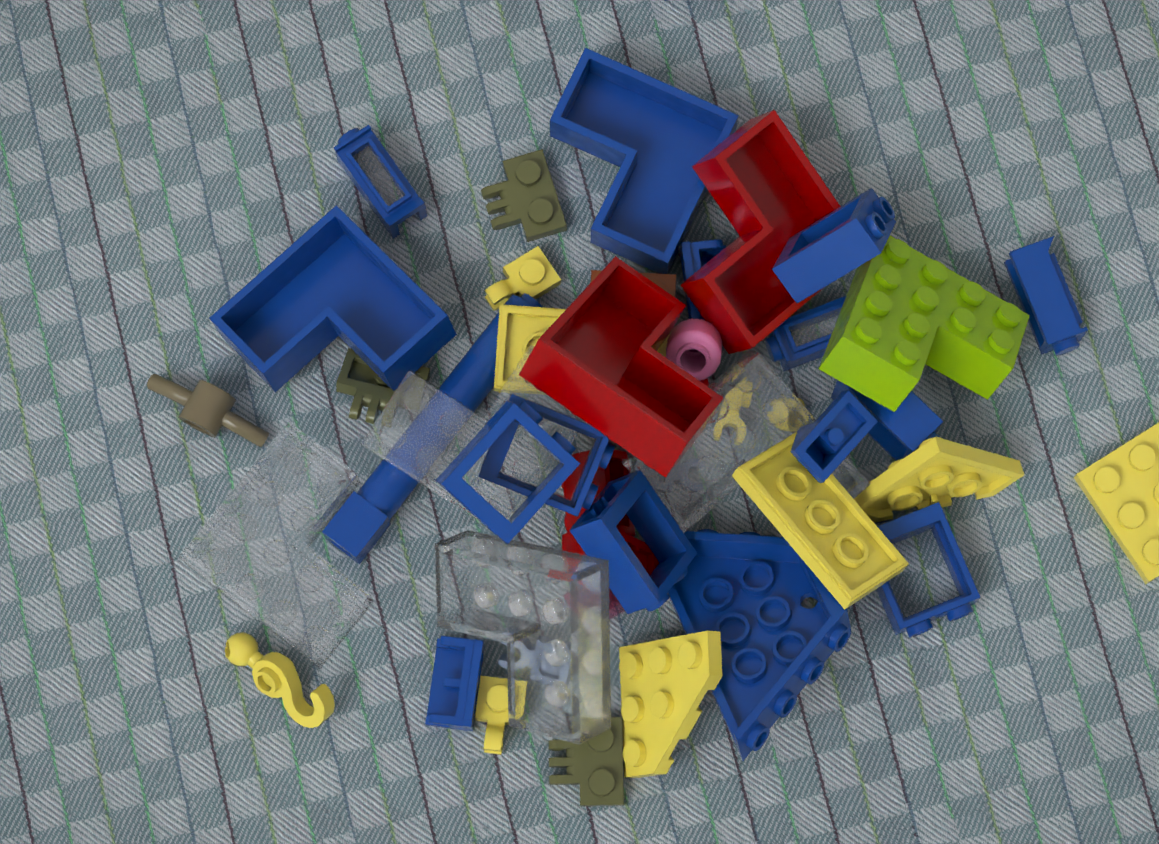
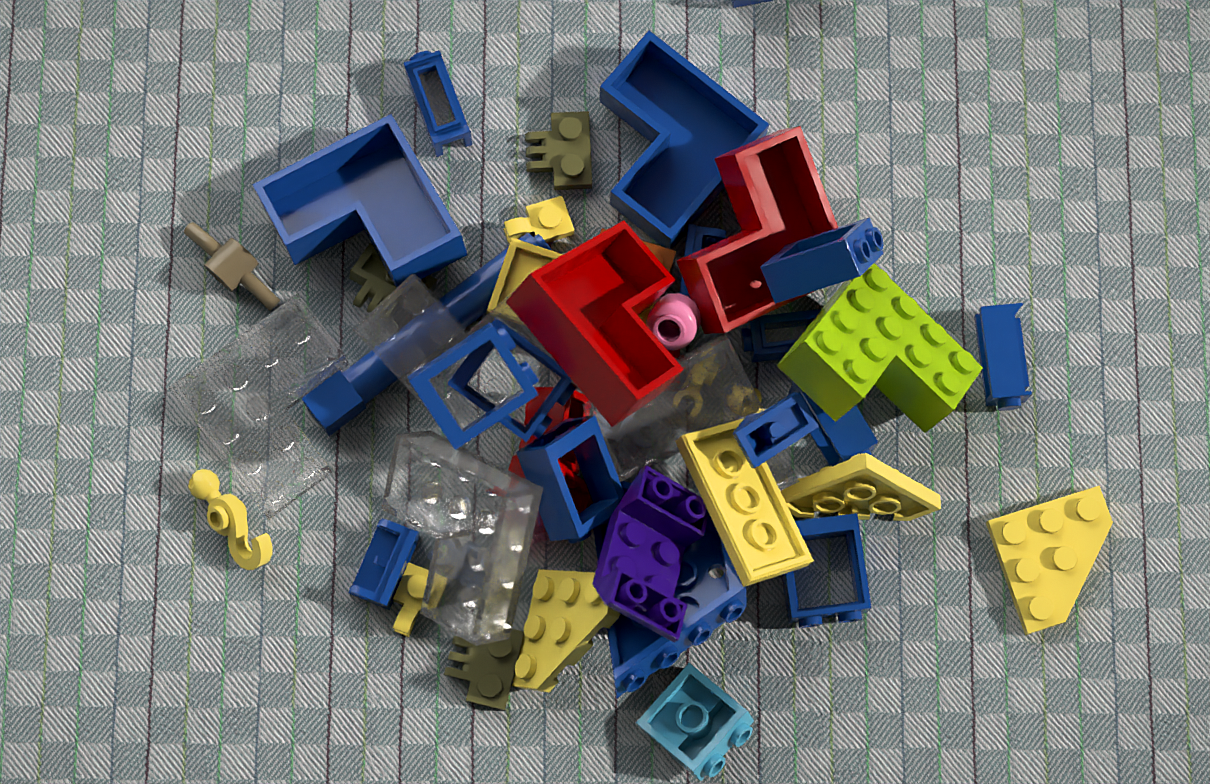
camera: 10 degrees right, 0 degrees up
(732, 599) = (646, 551): none -> dark purple slope
(829, 765) = (696, 723): none -> medium azure plate

